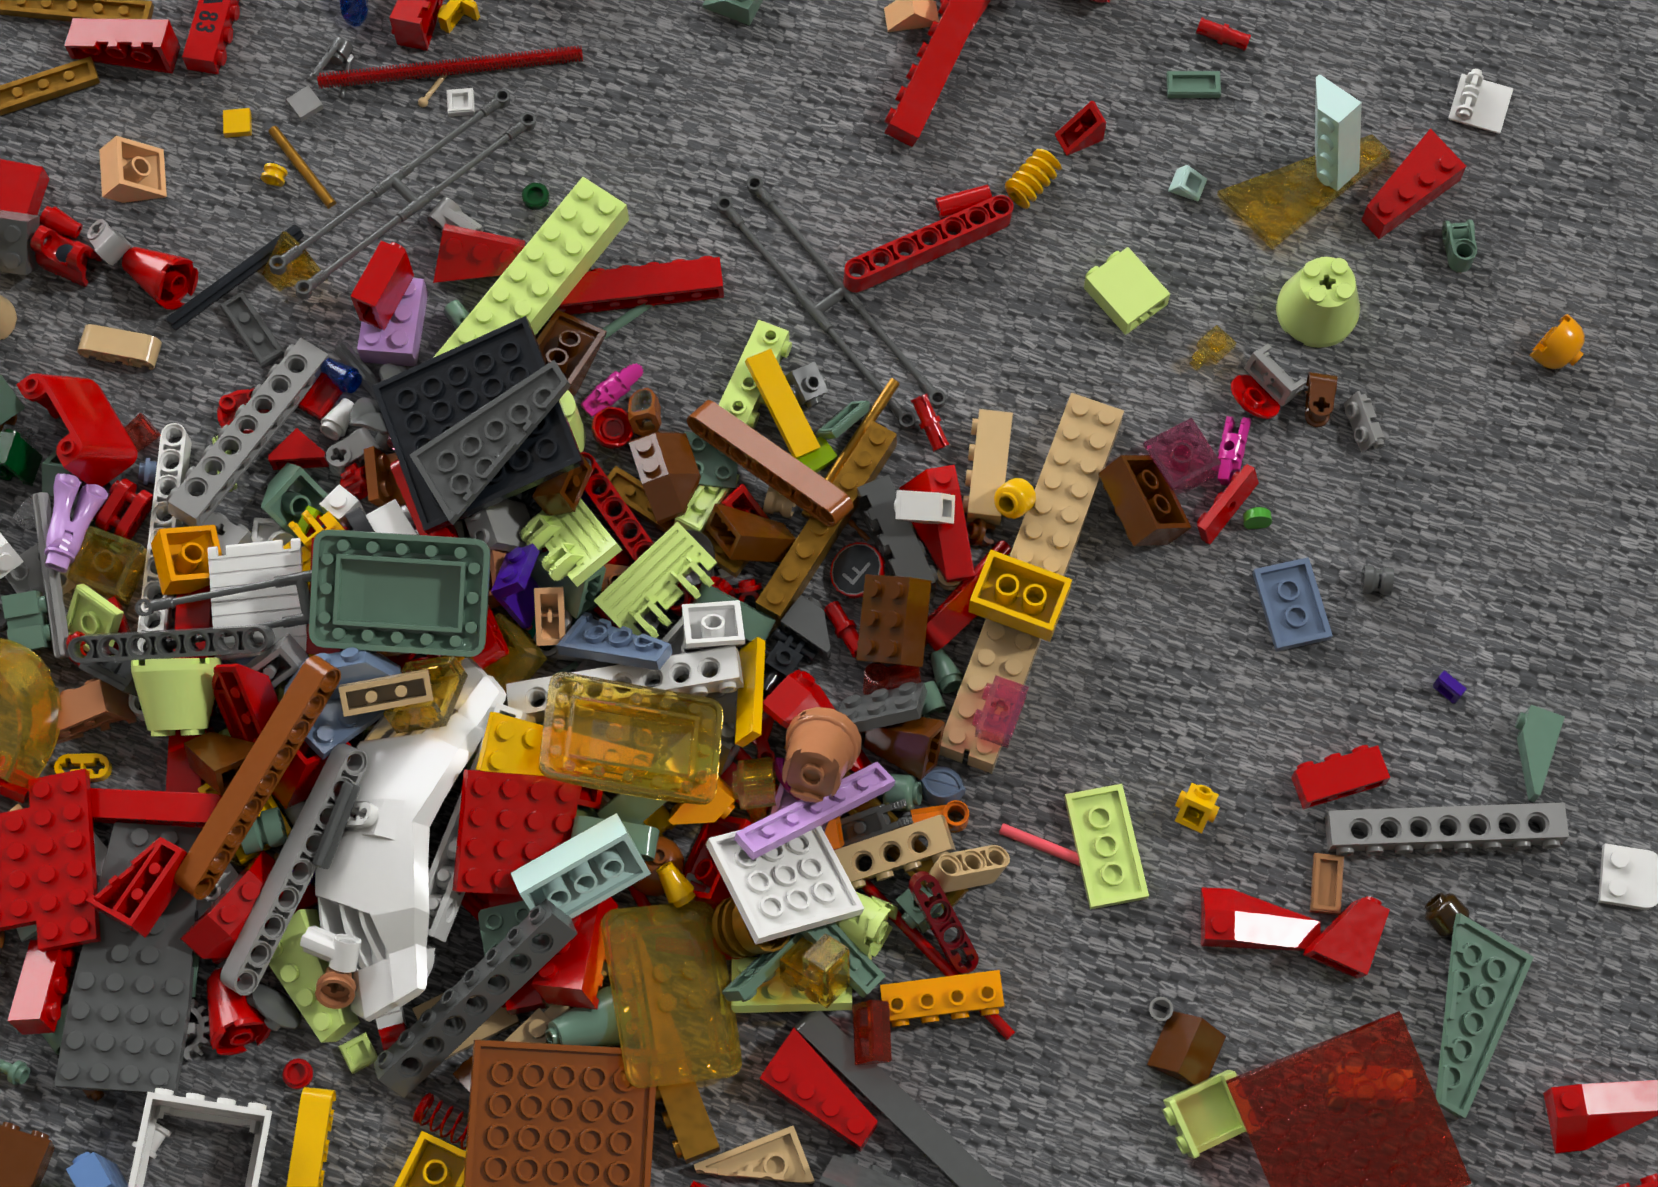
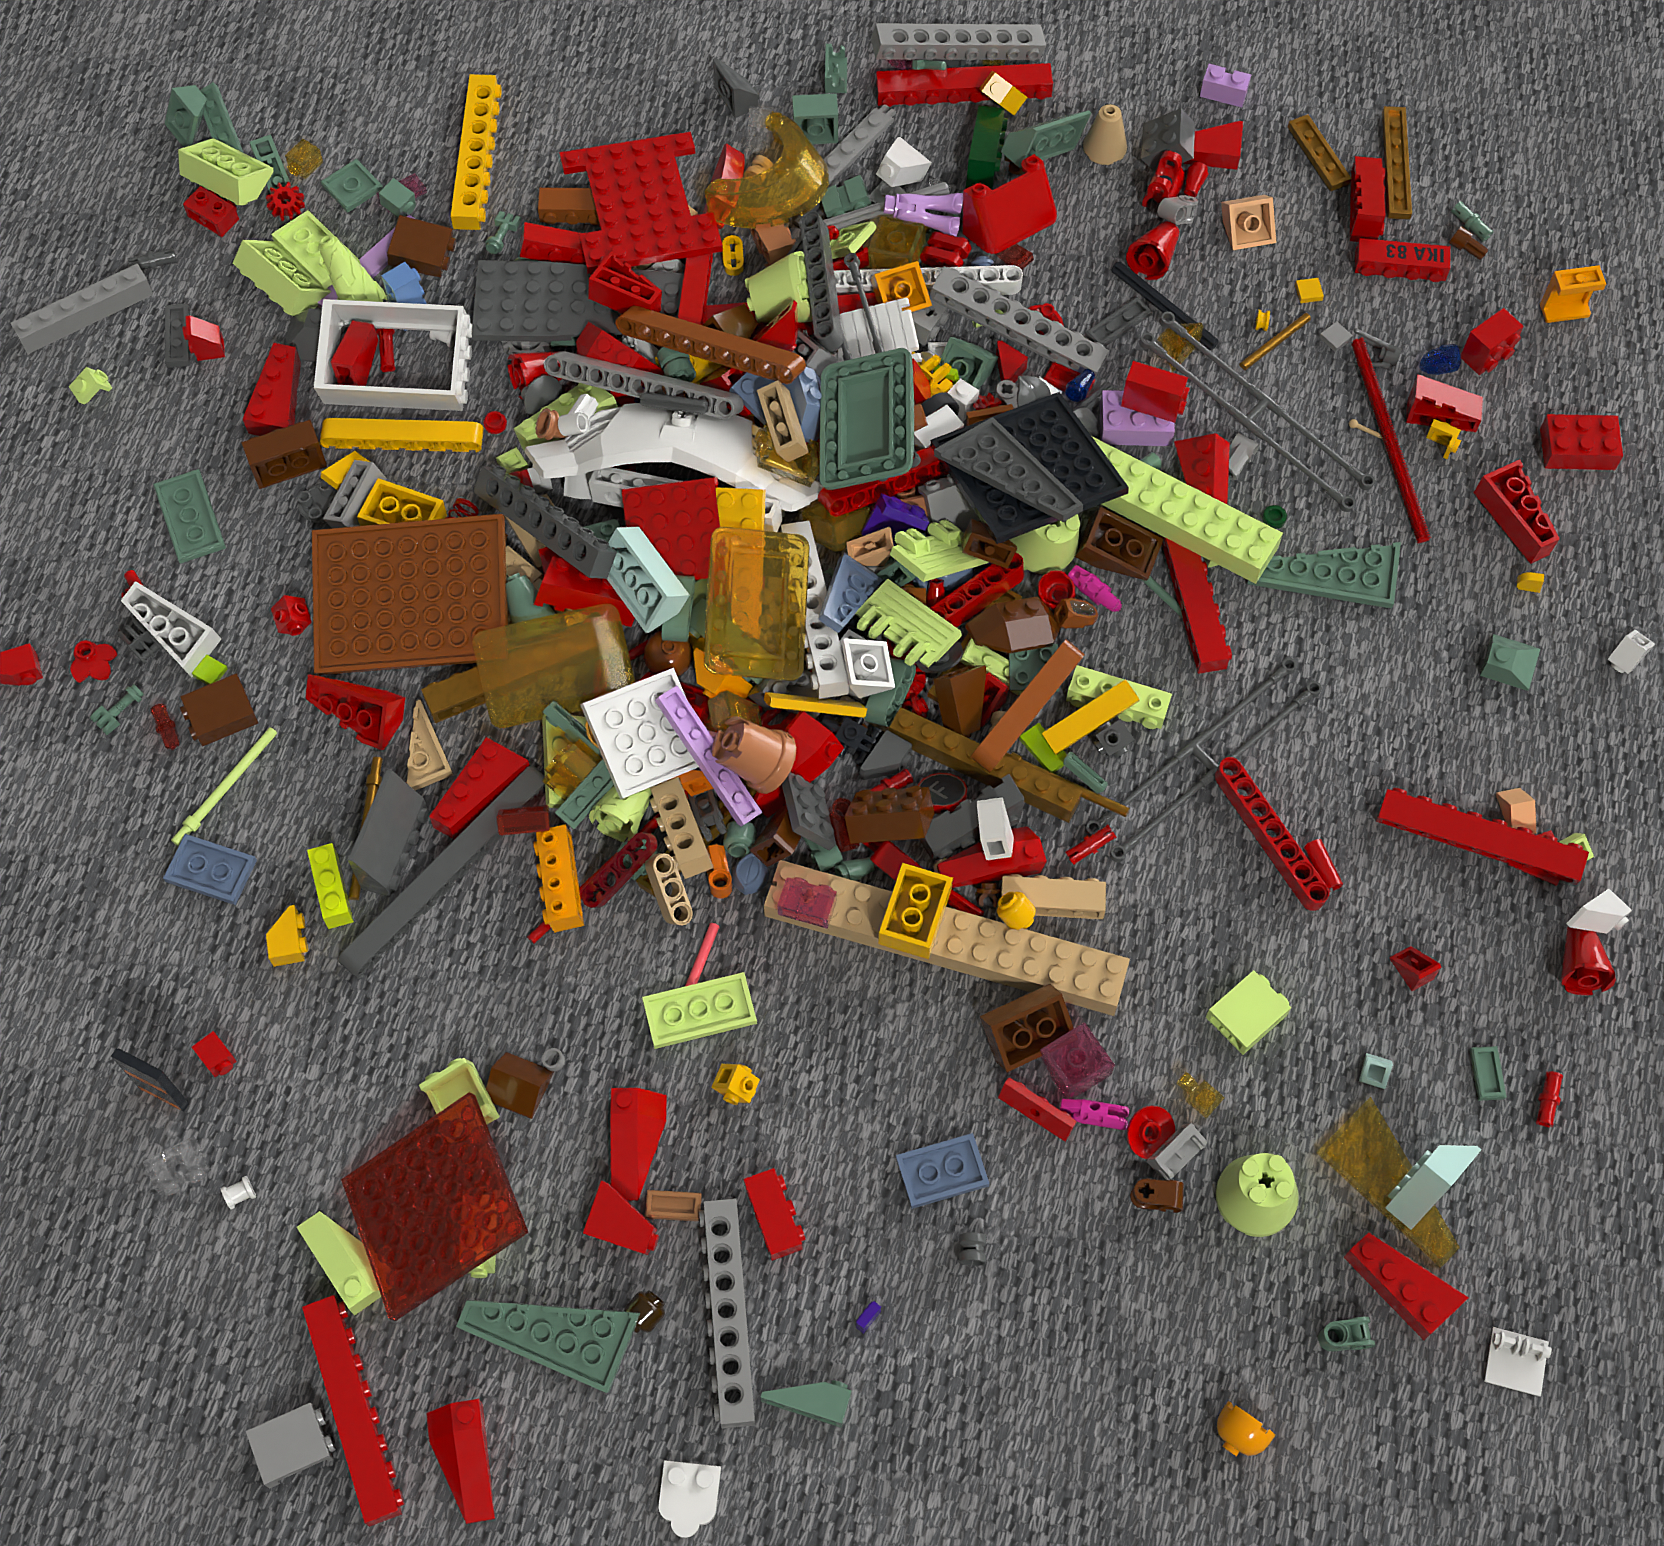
camera: 85 degrees right, 5 degrees down
(119, 345) = (1089, 232): tan beam -> none
(460, 102) = (1357, 451): white tile -> none
(618, 132) = (1339, 574): none -> sand green wing
(675, 885) = (643, 662): yellow cone -> none
(1031, 177) = (1353, 922): yellow piece -> none
(1257, 518) = (1026, 1137): bright green tile -> none
(1360, 412) = (1147, 1234): light grey hinge -> none

